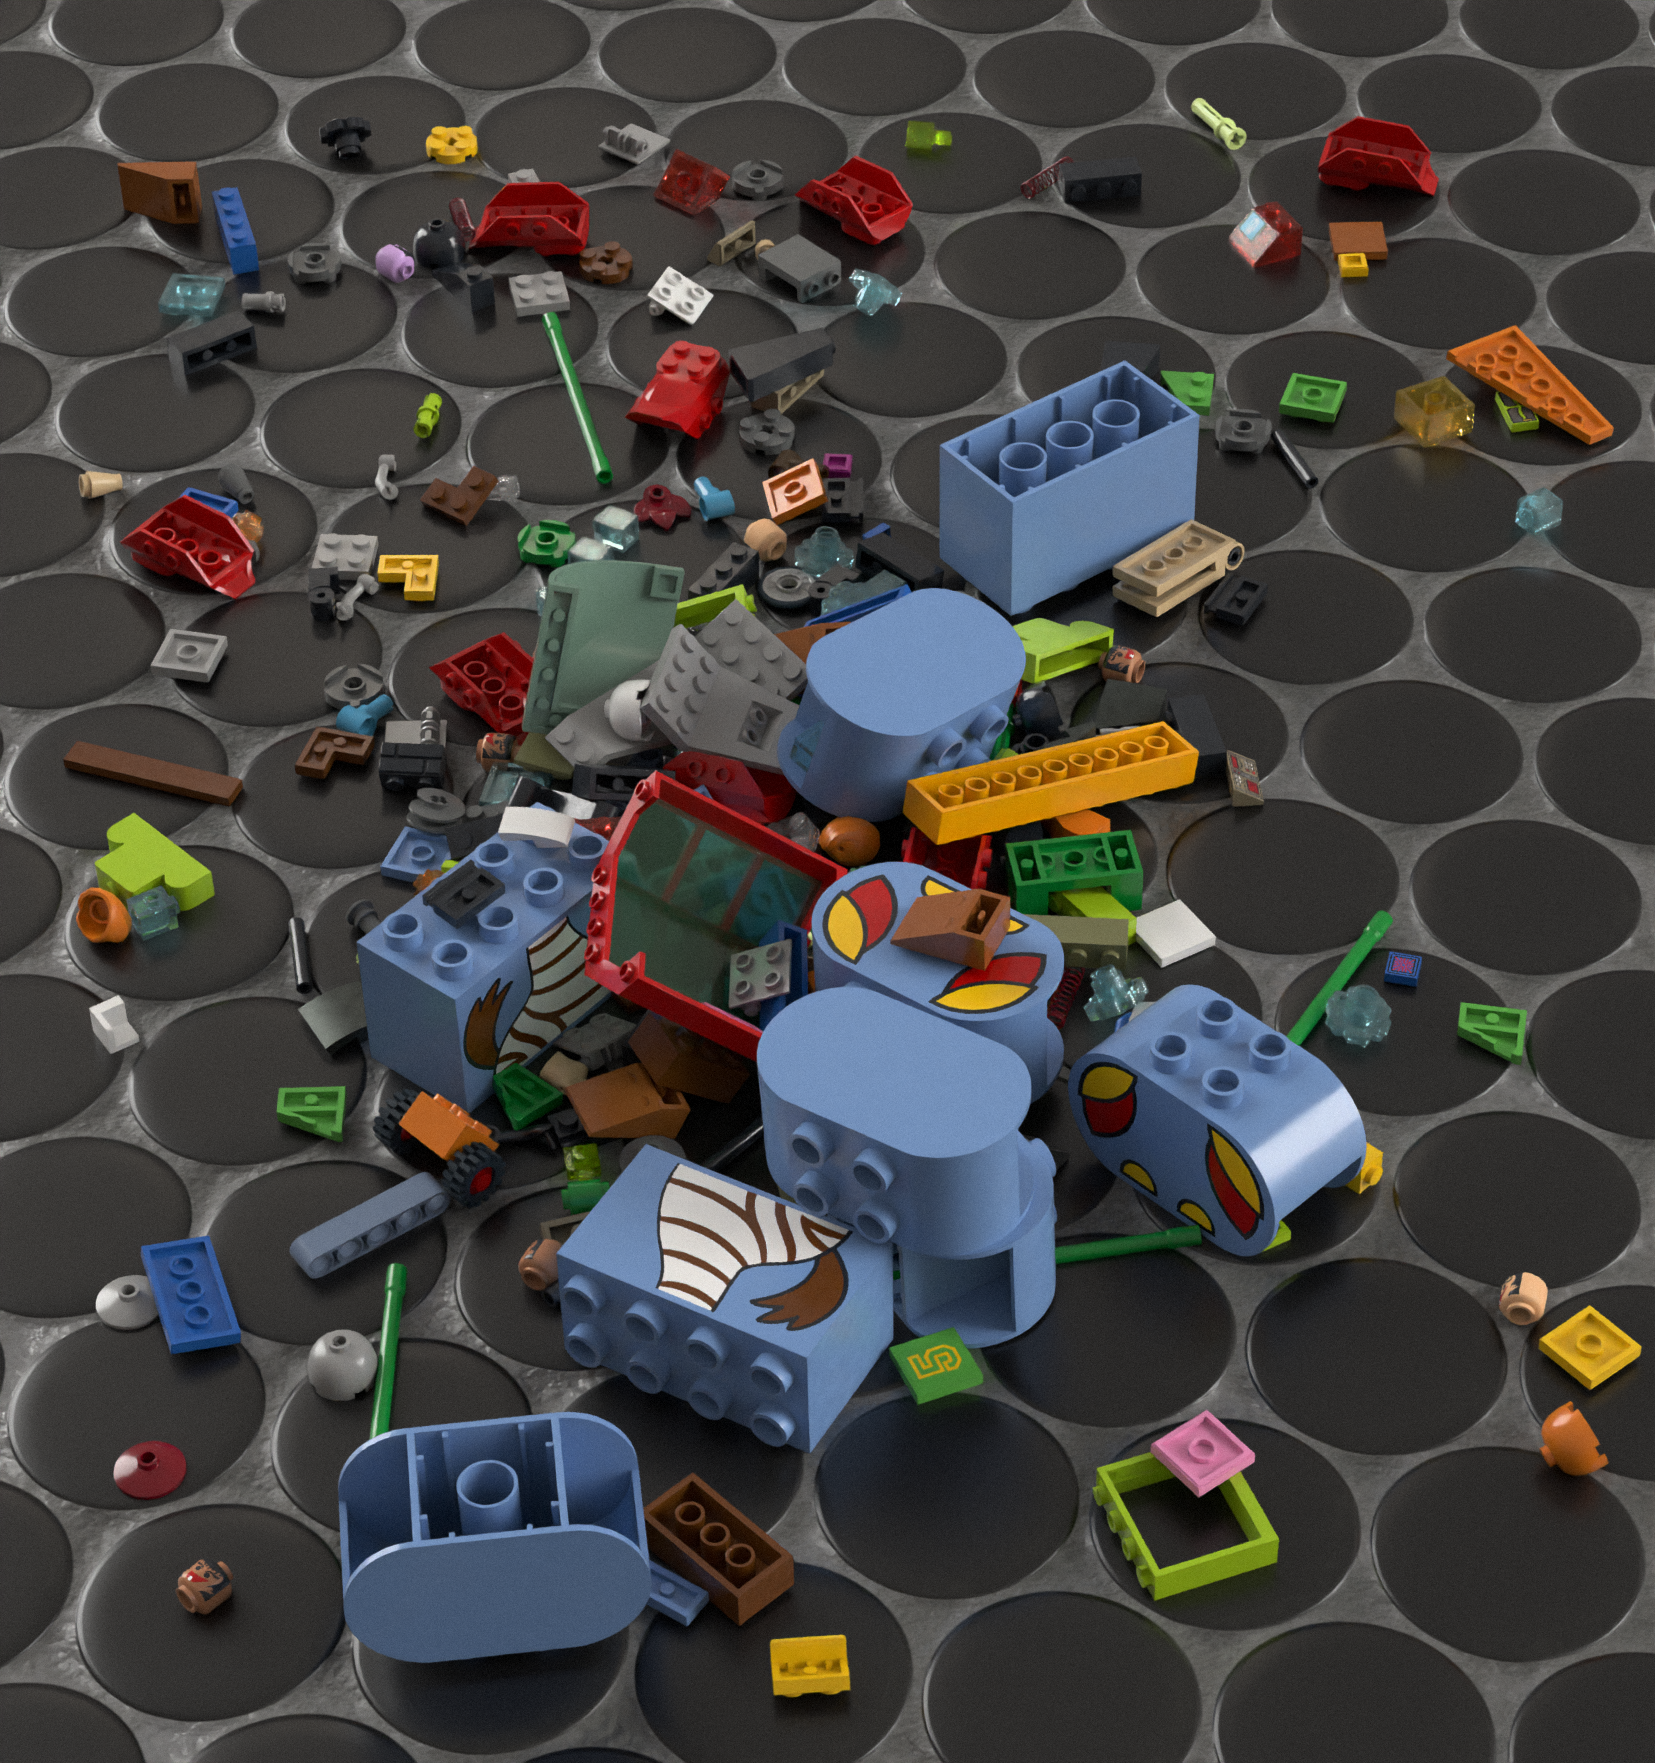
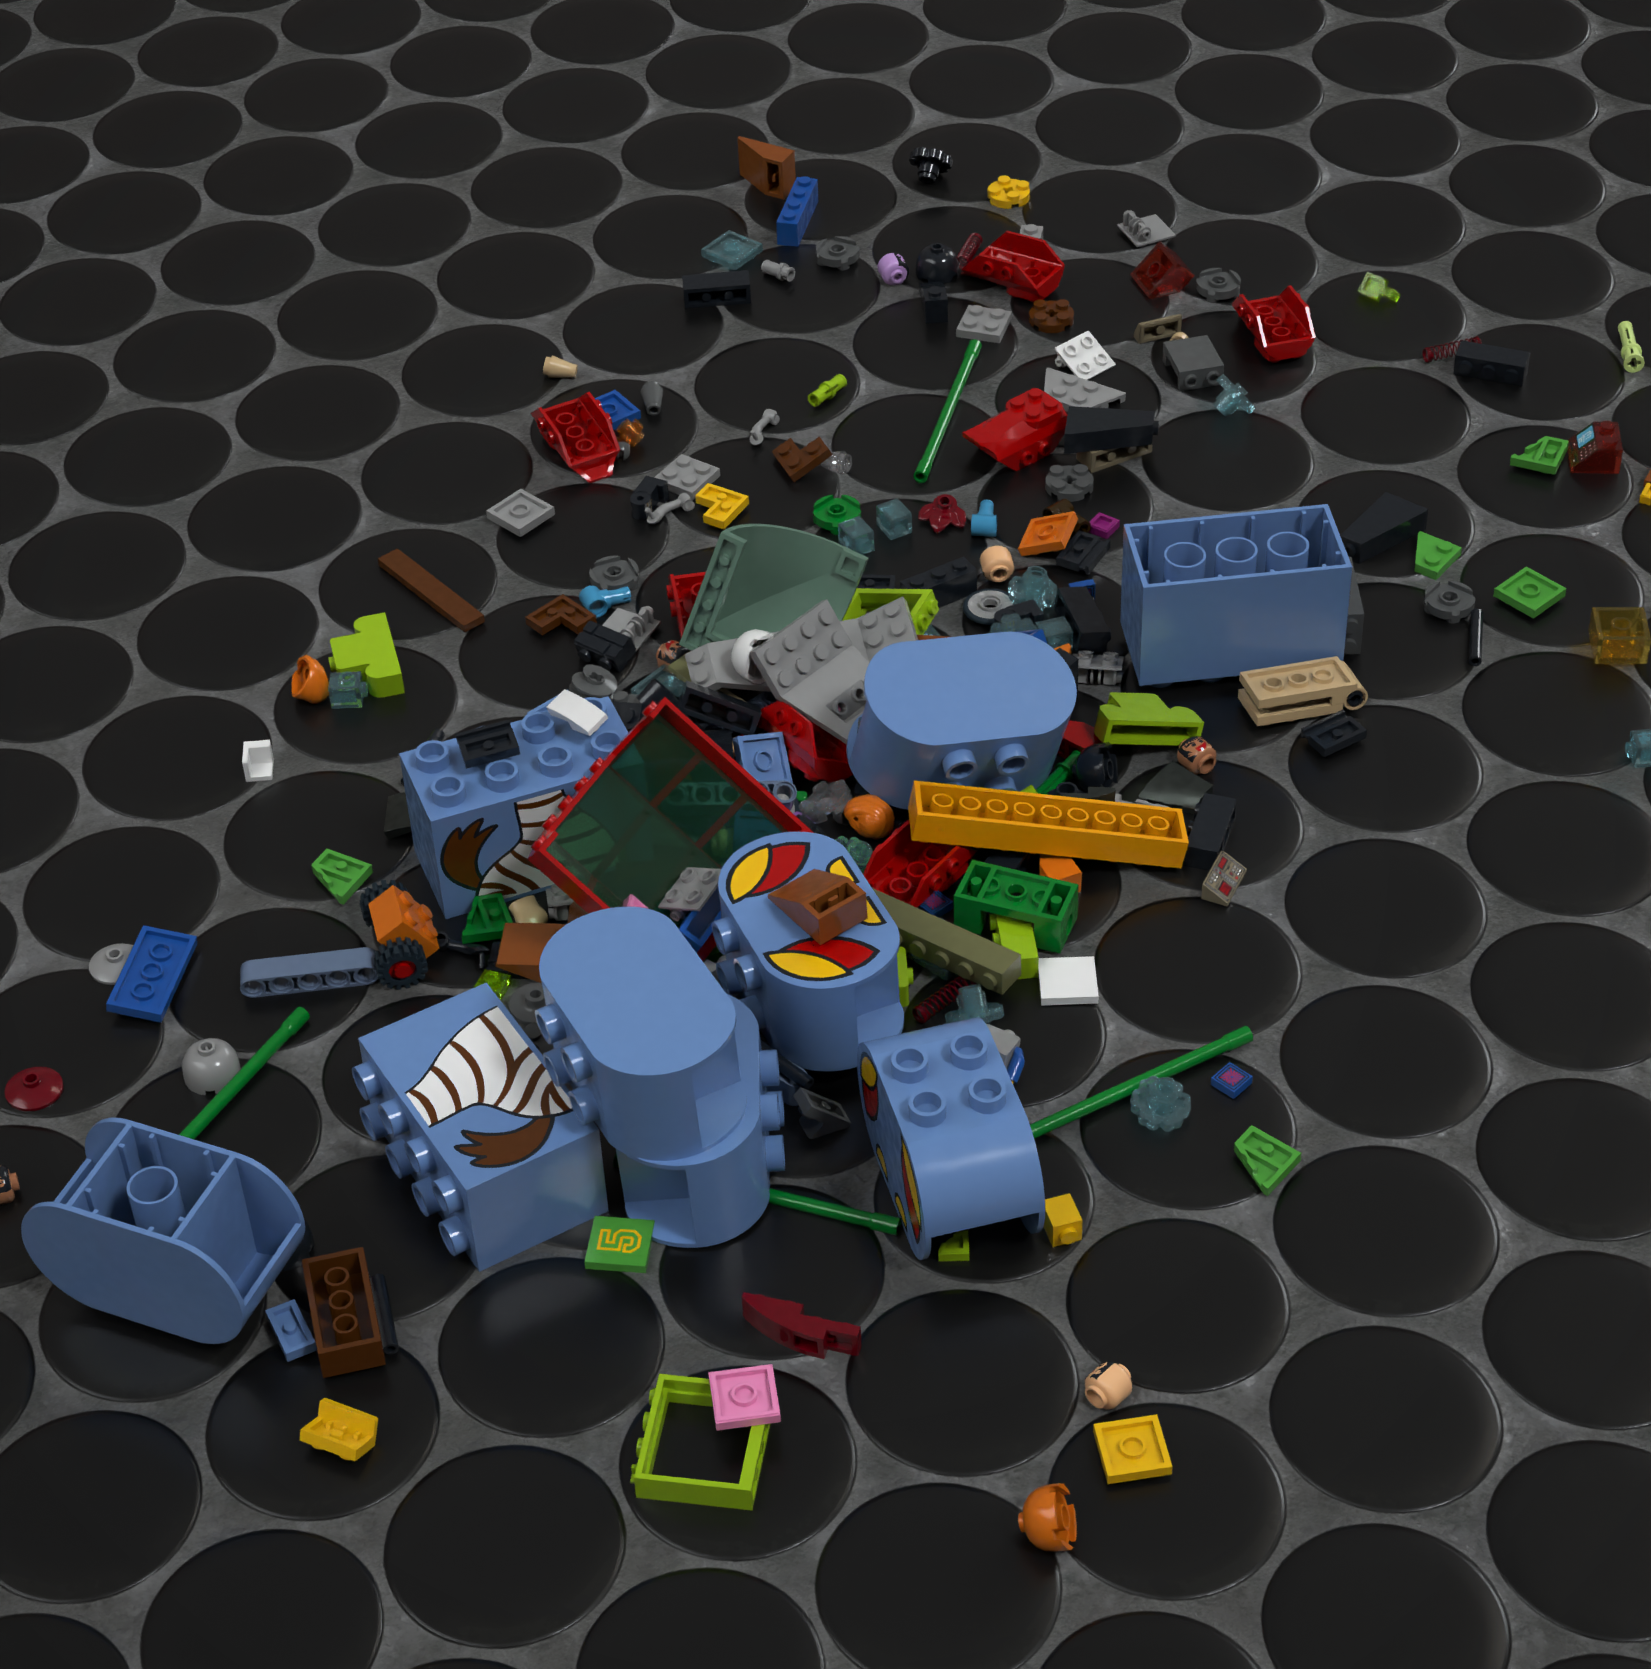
camera: 30 degrees right, 0 degrees up
(708, 333) = (1079, 392): none -> light grey wing
(1176, 1372) = (806, 1334): none -> dark red slope
(1220, 258) = (1542, 456): none -> bright green wing

